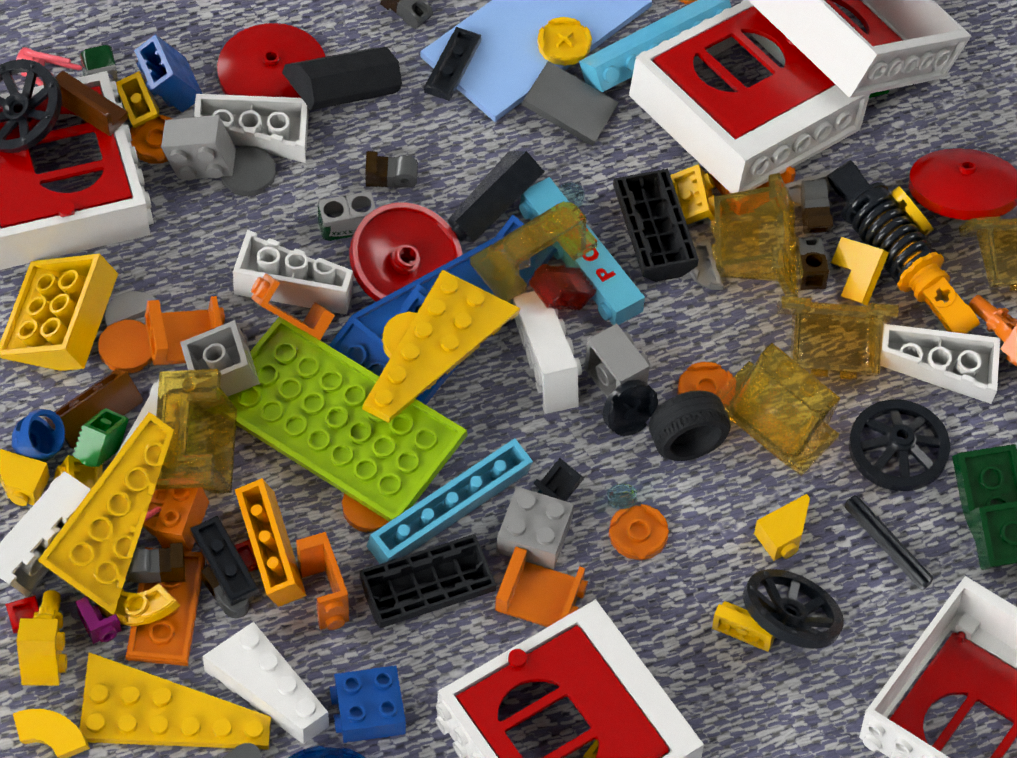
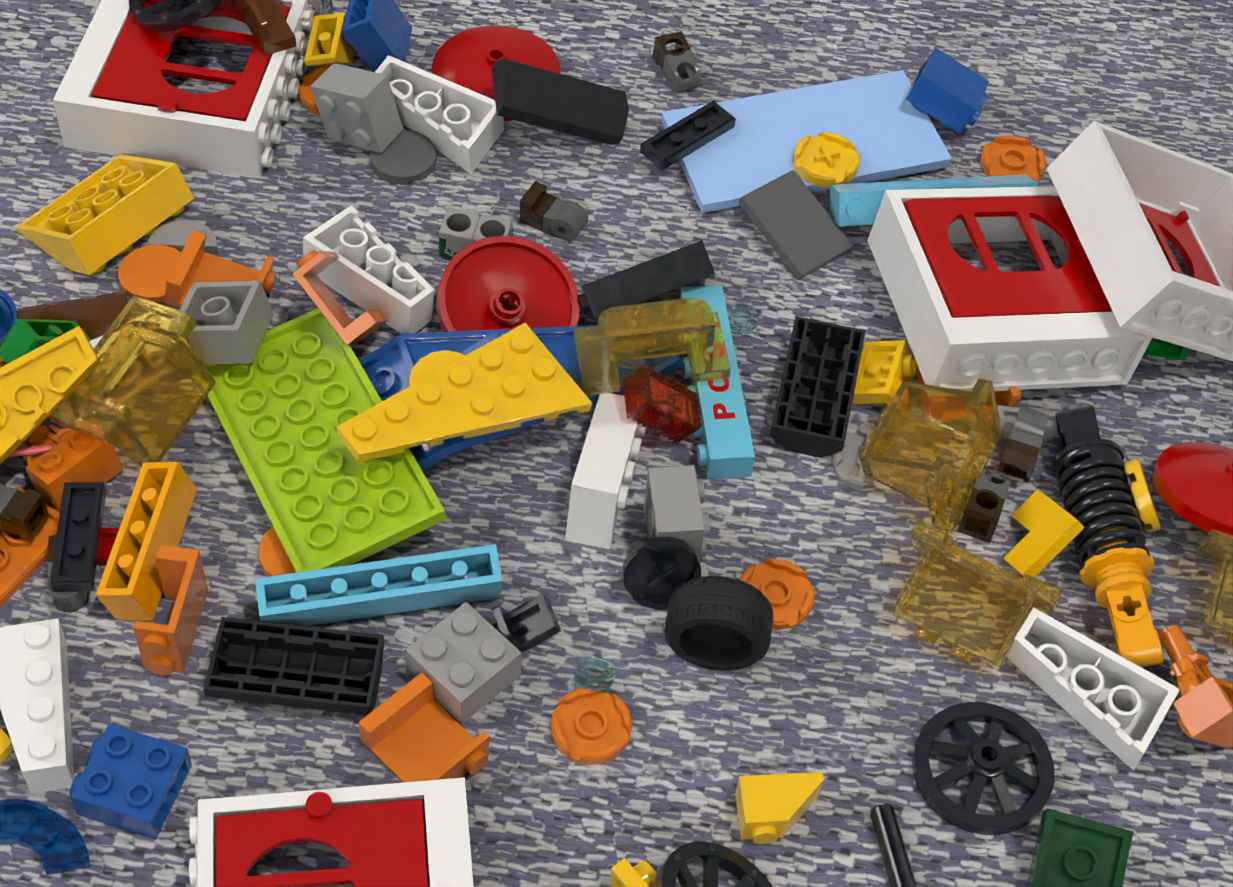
camera: 25 degrees right, 5 degrees down
(782, 408) = (849, 656): clear yellow windscreen -> none

